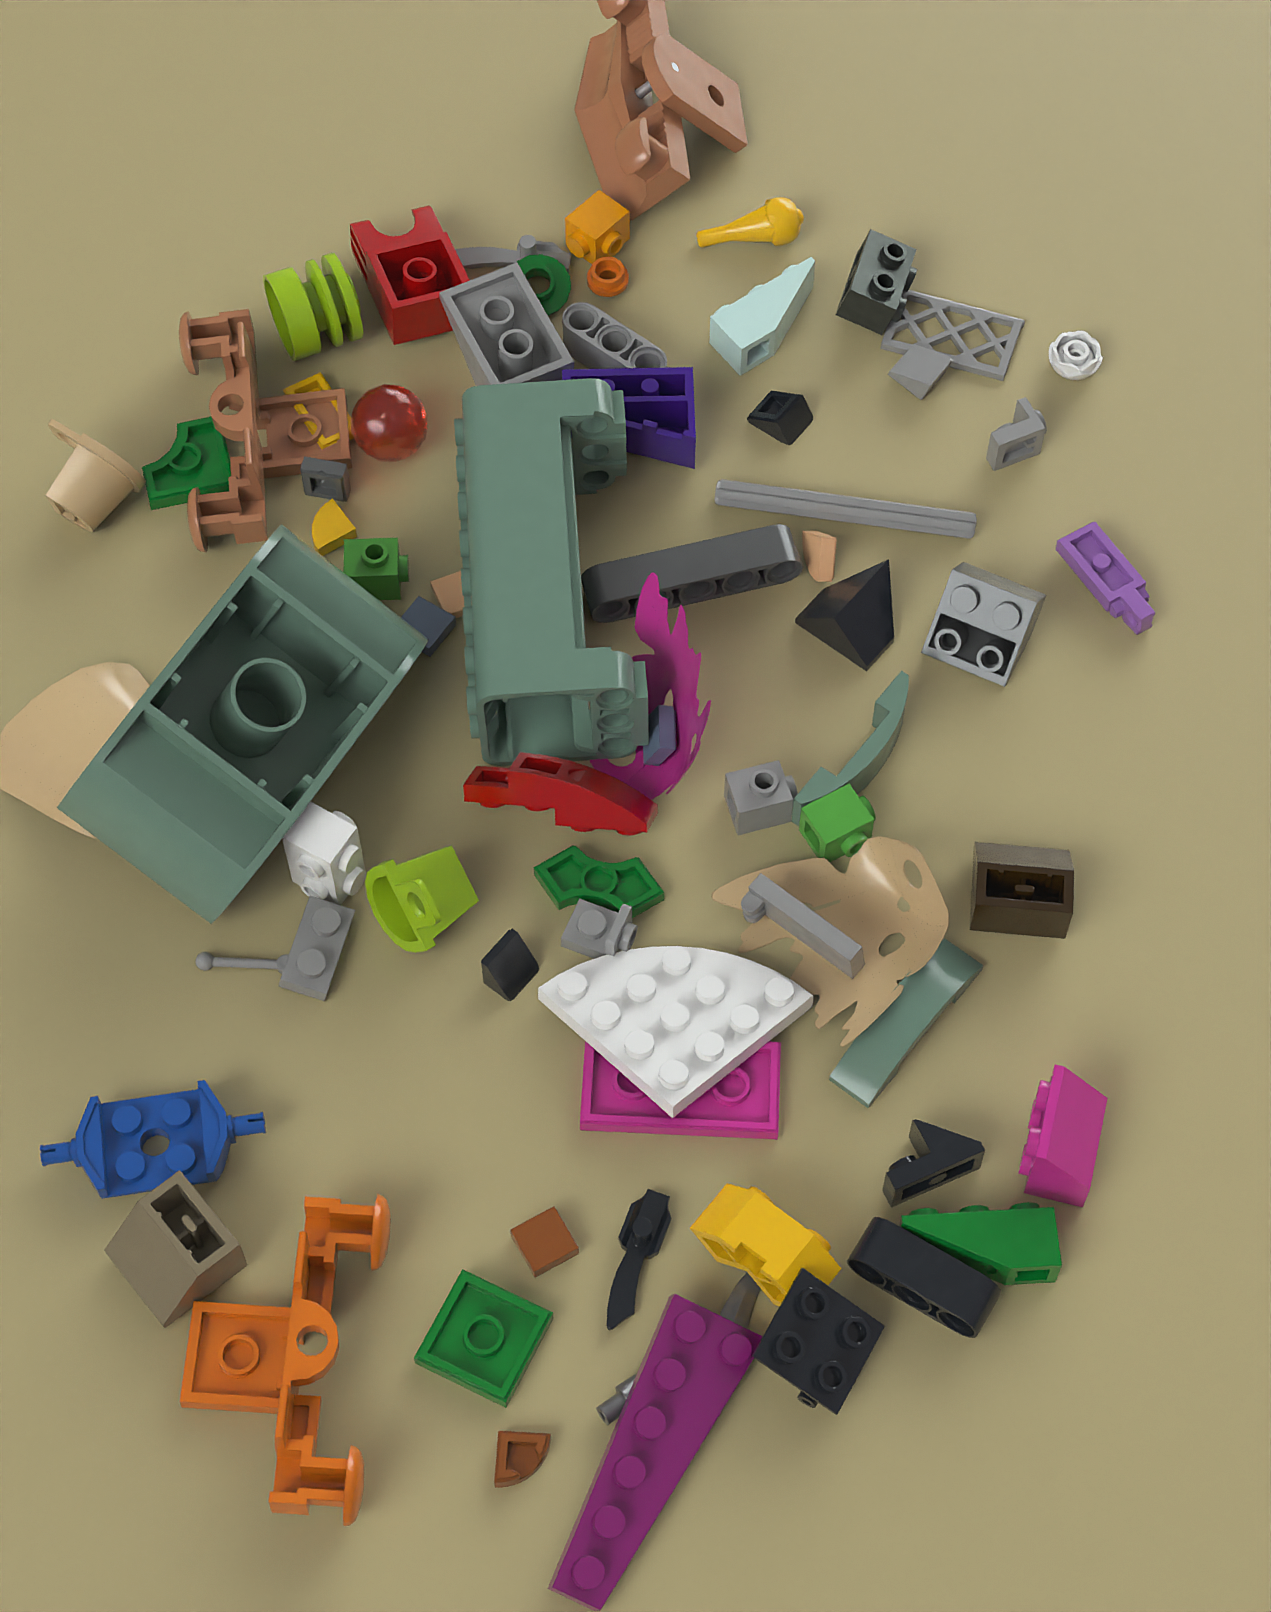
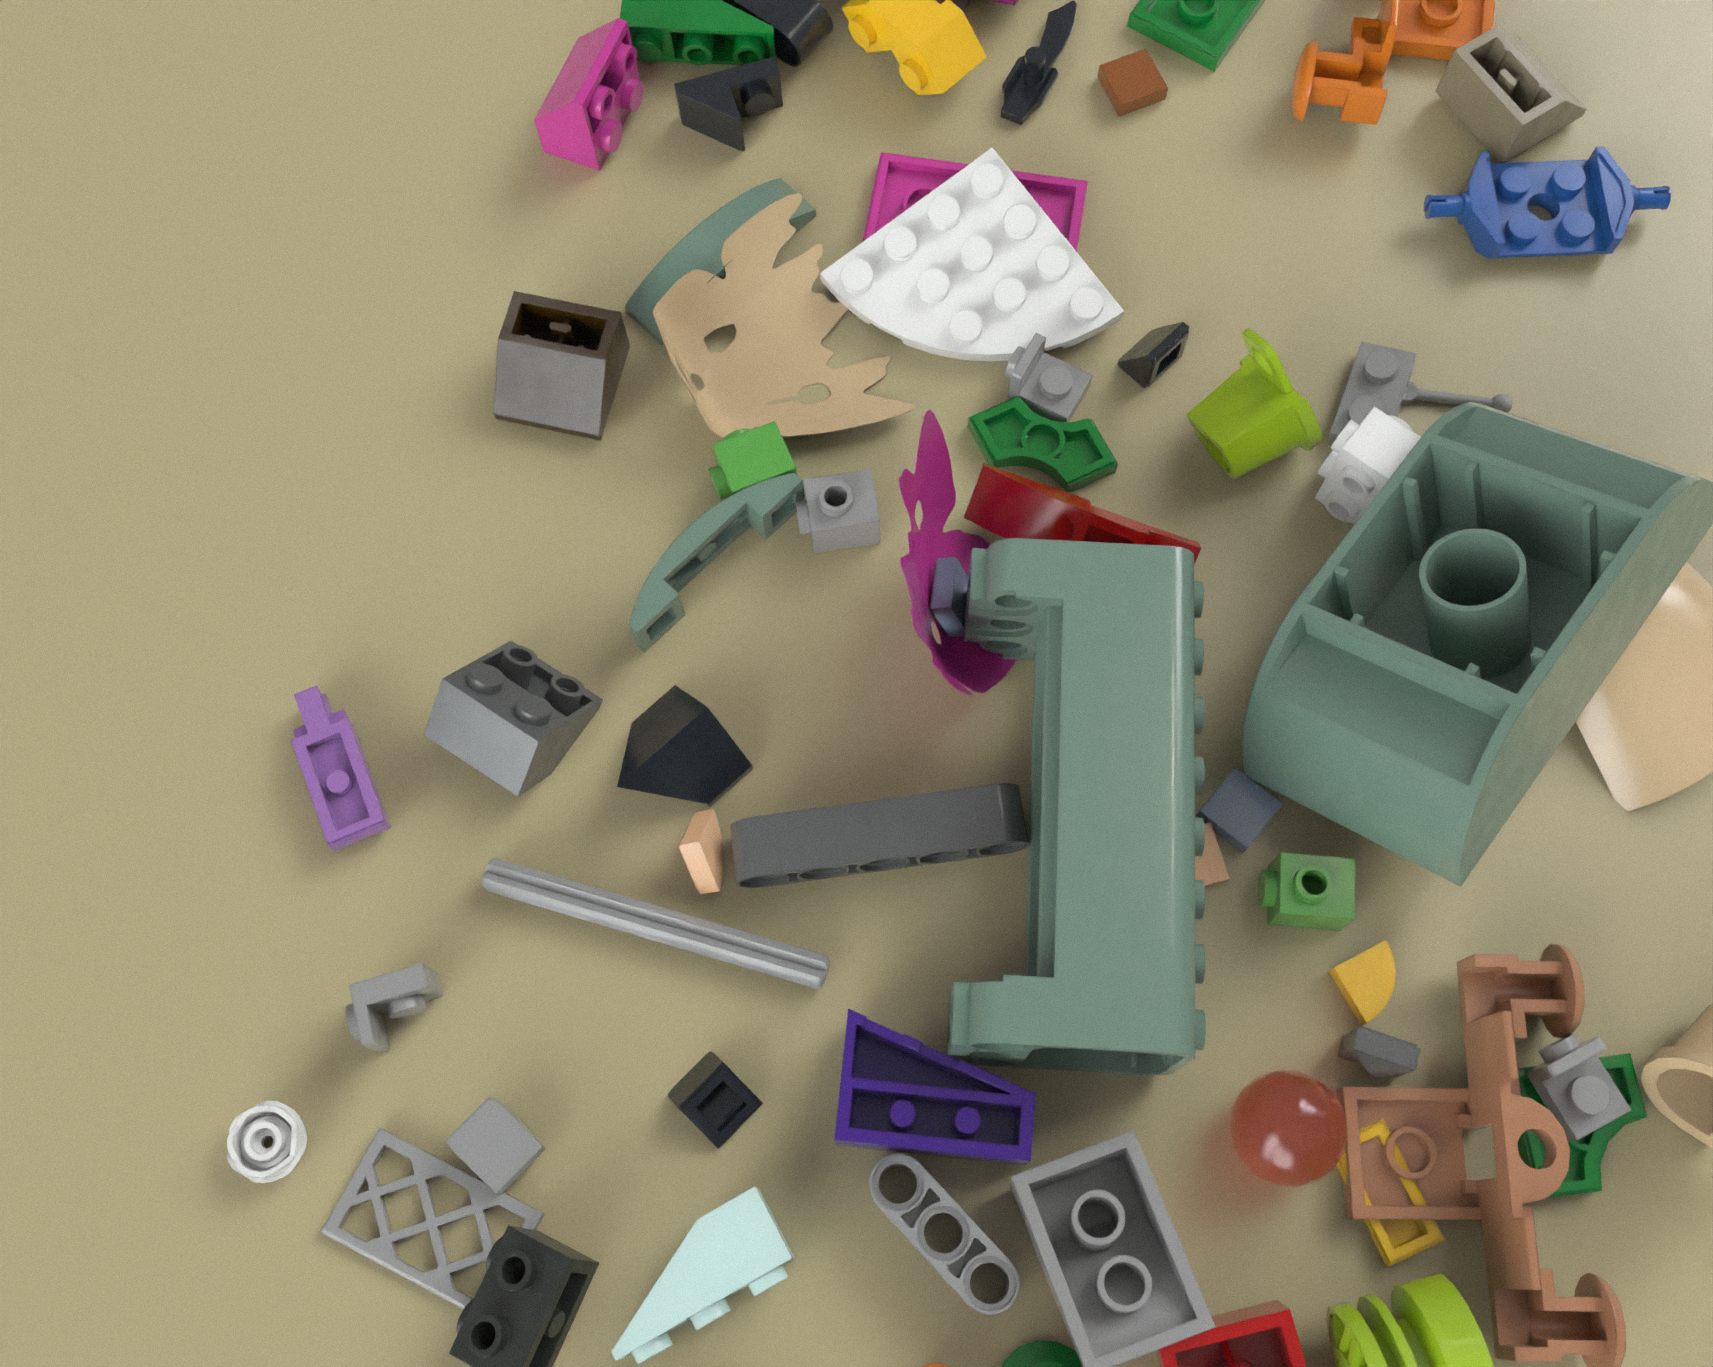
camera: 170 degrees left, 10 degrees up
(191, 466) = (1577, 1086): none -> light grey bracket
(803, 923) = (817, 342): light grey hinge -> none

